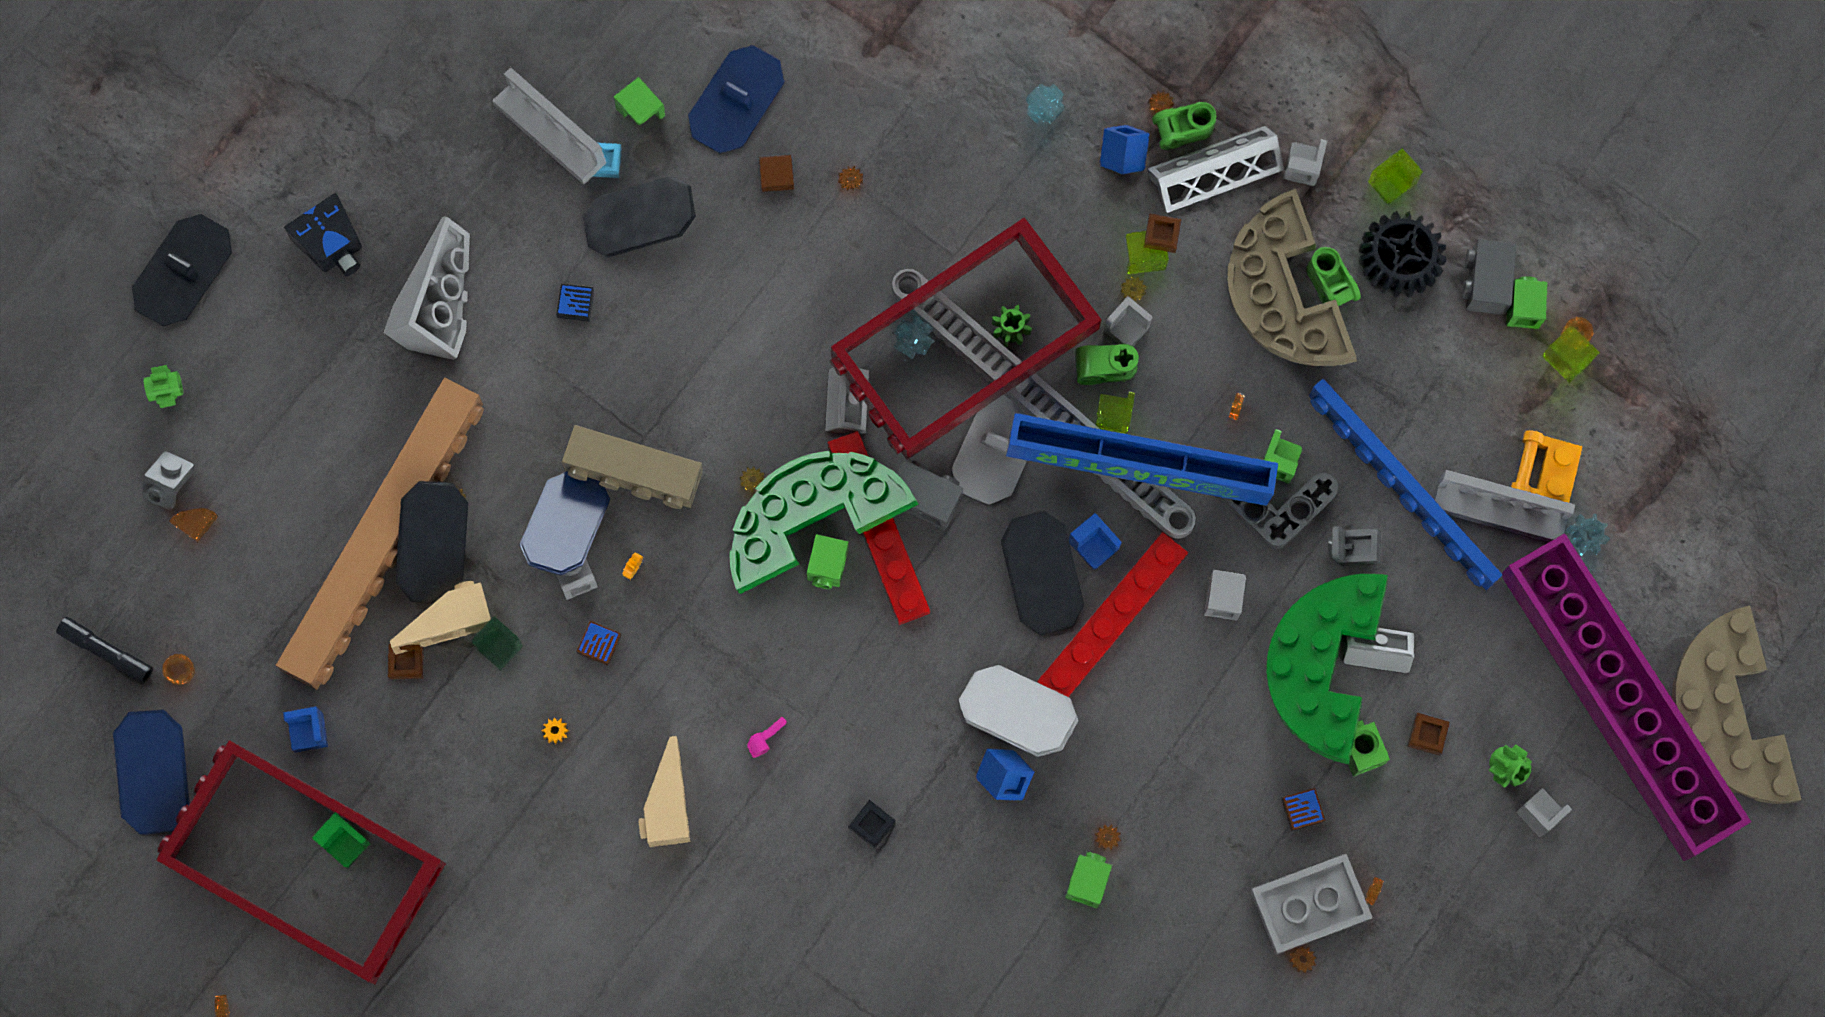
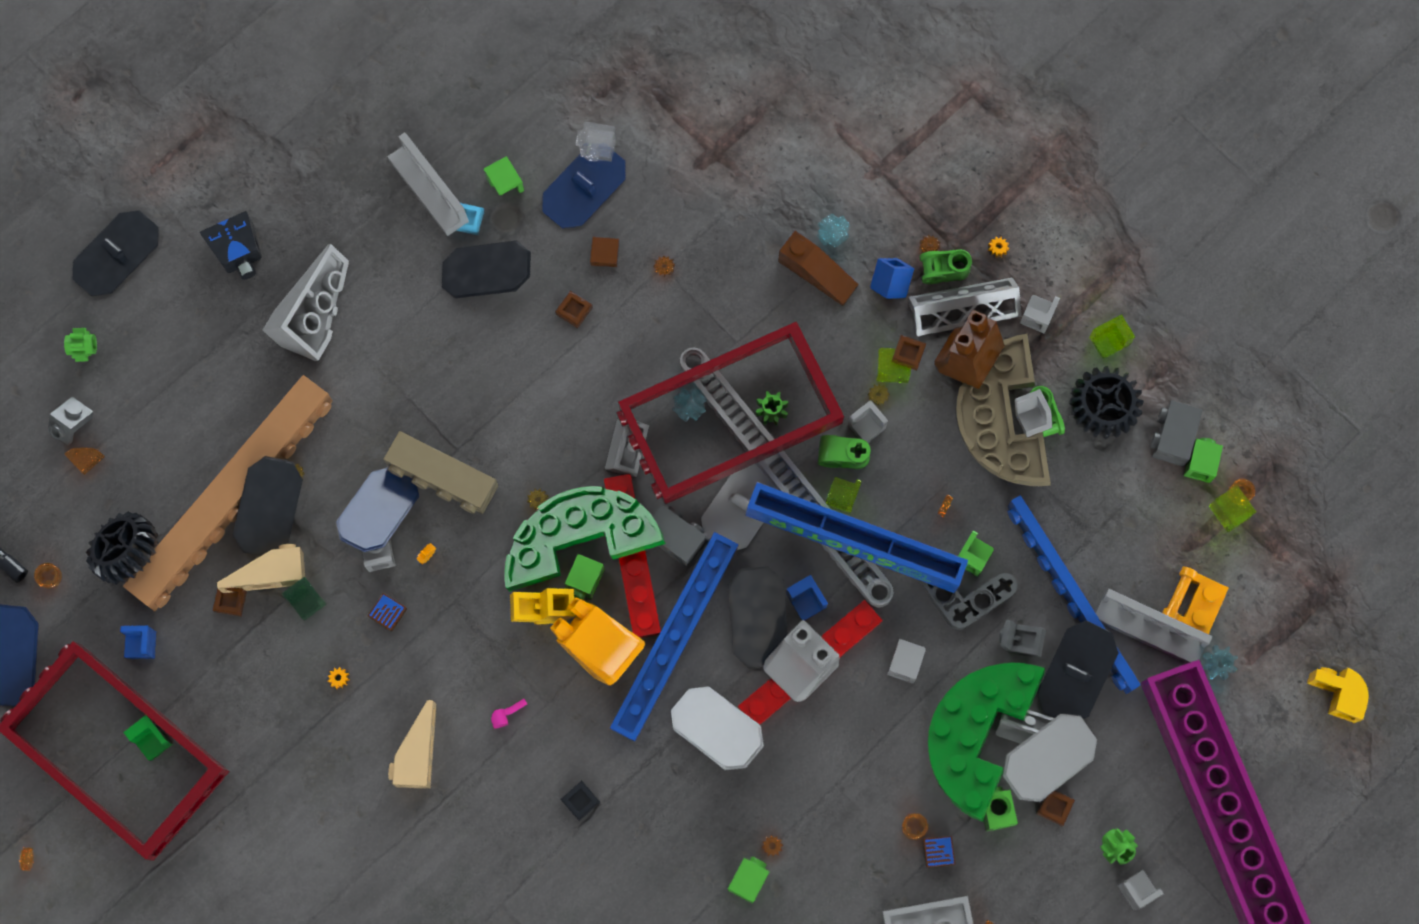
camera: 15 degrees right, 0 degrees up
(265, 619) = (122, 547): none -> black gear
(575, 302) = (422, 330): tile -> none
(742, 43) = (596, 141): none -> clear brick
(752, 247) = (574, 309): none -> reddish brown tile
(787, 605) = (542, 606): none -> yellow brick
(859, 633) = (597, 641): none -> light orange hips
(947, 613) = (674, 637): none -> blue plate
(1004, 774) = (696, 779): blue panel -> none
(1033, 151) = (816, 268): none -> reddish brown slope
(1104, 615) = (801, 662): none -> light grey hips
(1234, 218) = (971, 350): none -> reddish brown hips
(1242, 87) = (996, 251): none -> light orange piece
(1278, 779) = (907, 830): none -> clear orange bush
(1322, 279) = (1033, 413): none -> light grey panel
(1412, 677) = (1049, 757): none -> light grey shield
(1427, 573) = (1078, 671): none -> black shield
(1714, 710) = (1300, 832): dark tan plate -> none
(1741, 541) = (1349, 691): none -> yellow brick

